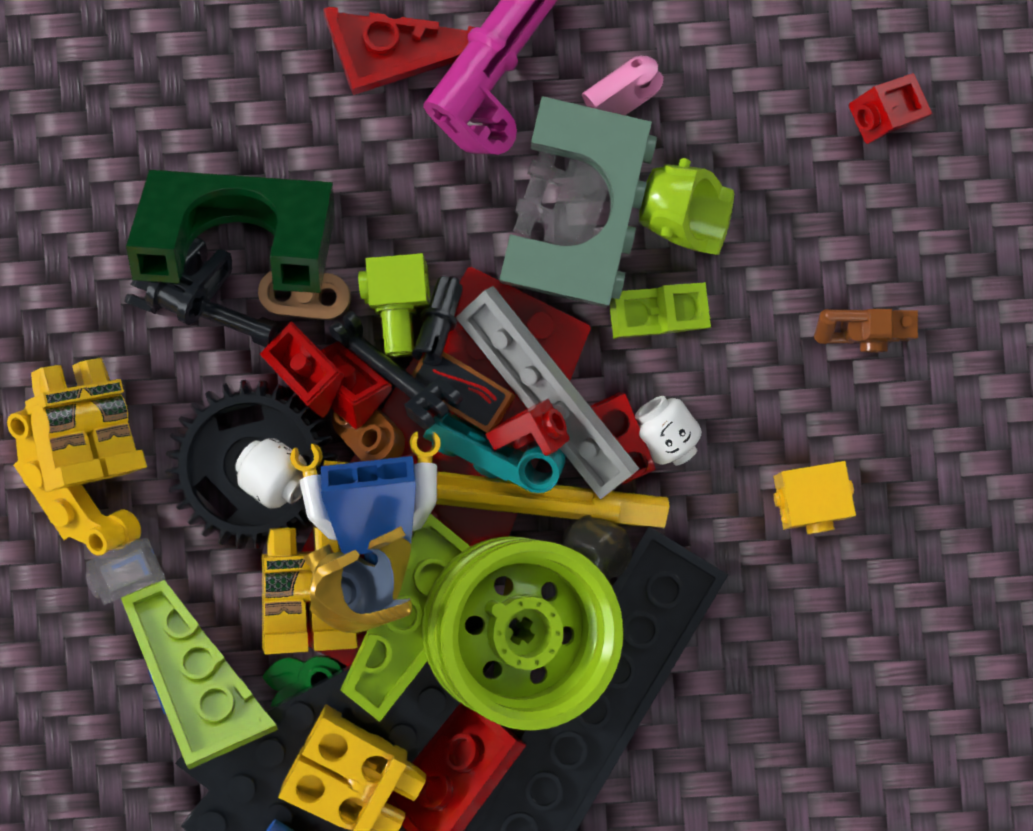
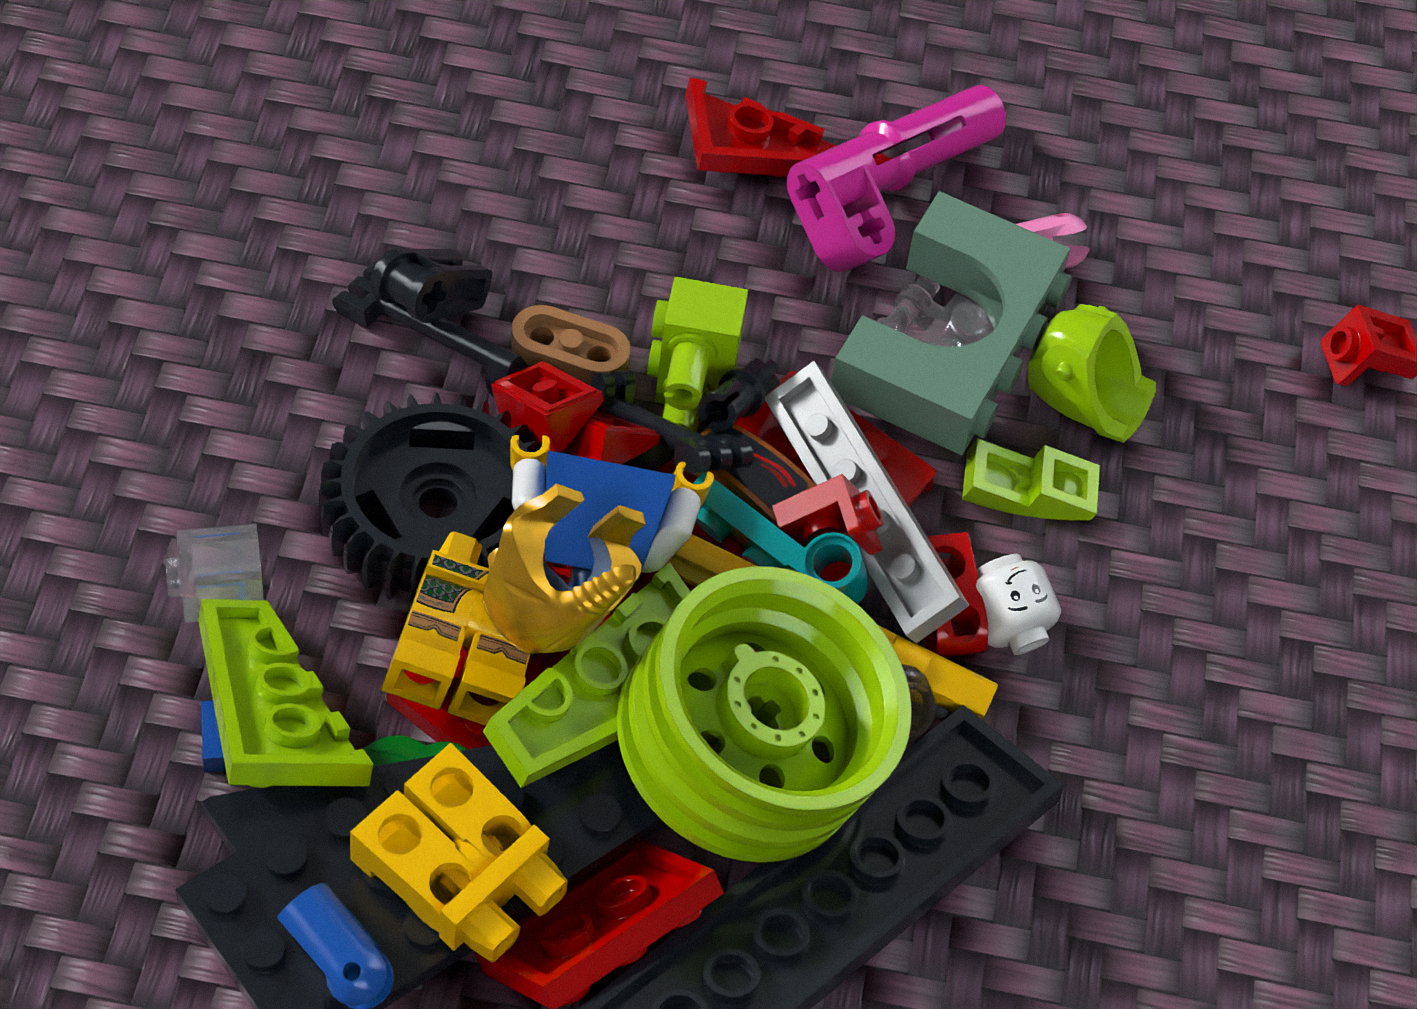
camera: 10 degrees right, 35 degrees down
(69, 508) = (164, 450): yellow plate -> none
(81, 429) = (238, 386): yellow hips -> none
(184, 204) = (433, 212): dark green arch -> none
(268, 473) = (470, 476): white head -> none
(814, 497) = (1203, 727): yellow head -> none
(868, 327) = (1309, 560): dark orange piece -> none

